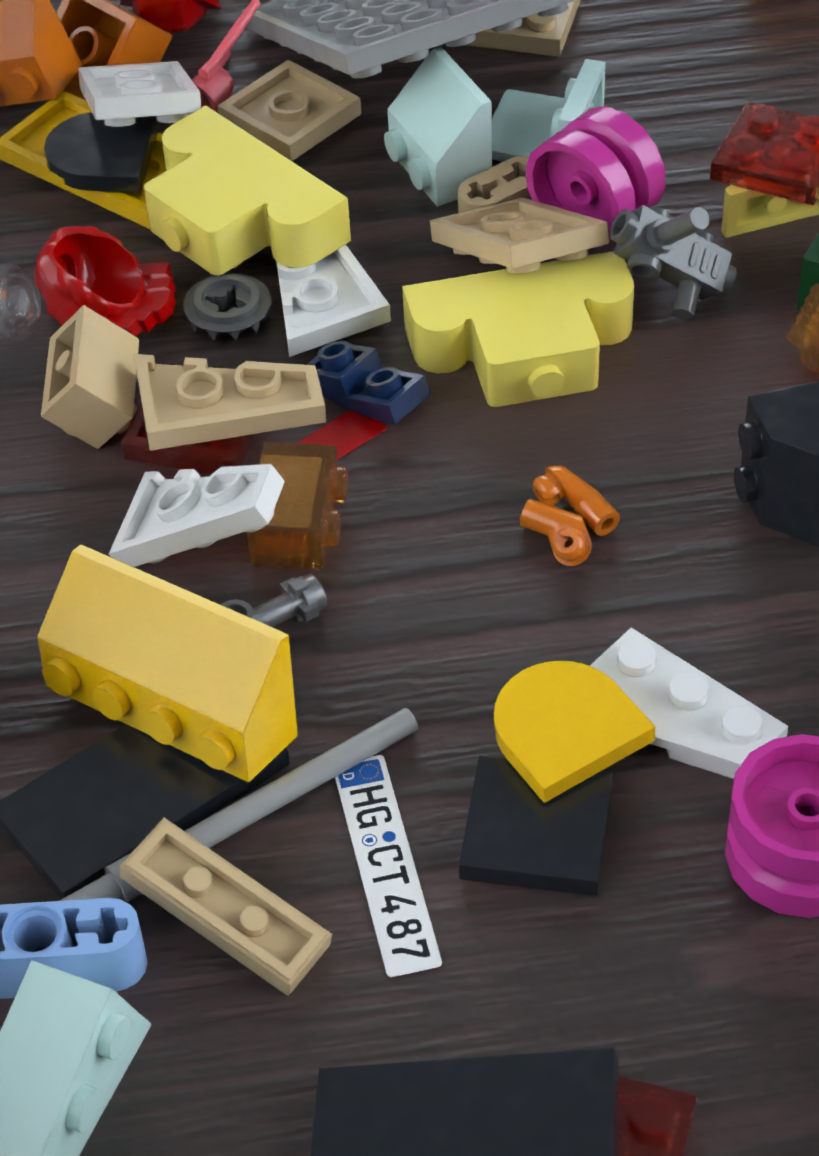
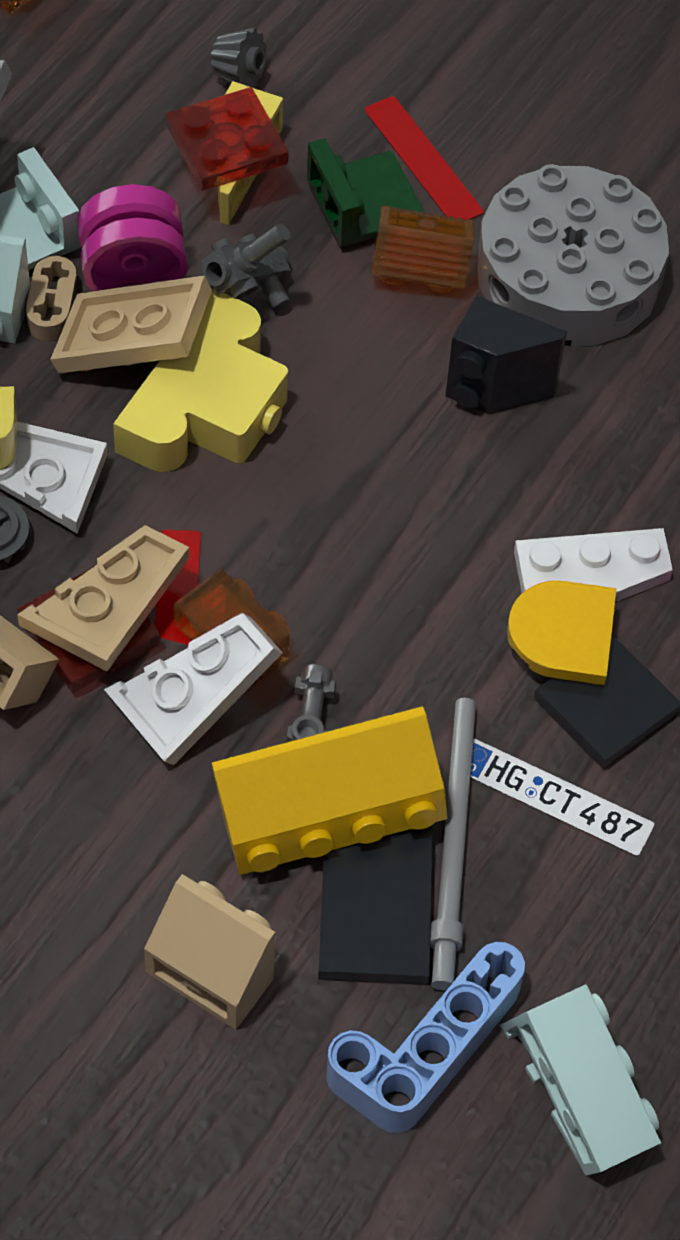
camera: 55 degrees left, 10 degrees up
(225, 906) = (522, 897): tan tile -> none
(358, 382) = (168, 510): dark blue slope -> none
(564, 529) = (400, 511): orange arm -> none
(580, 496) = (386, 481): orange arm -> none

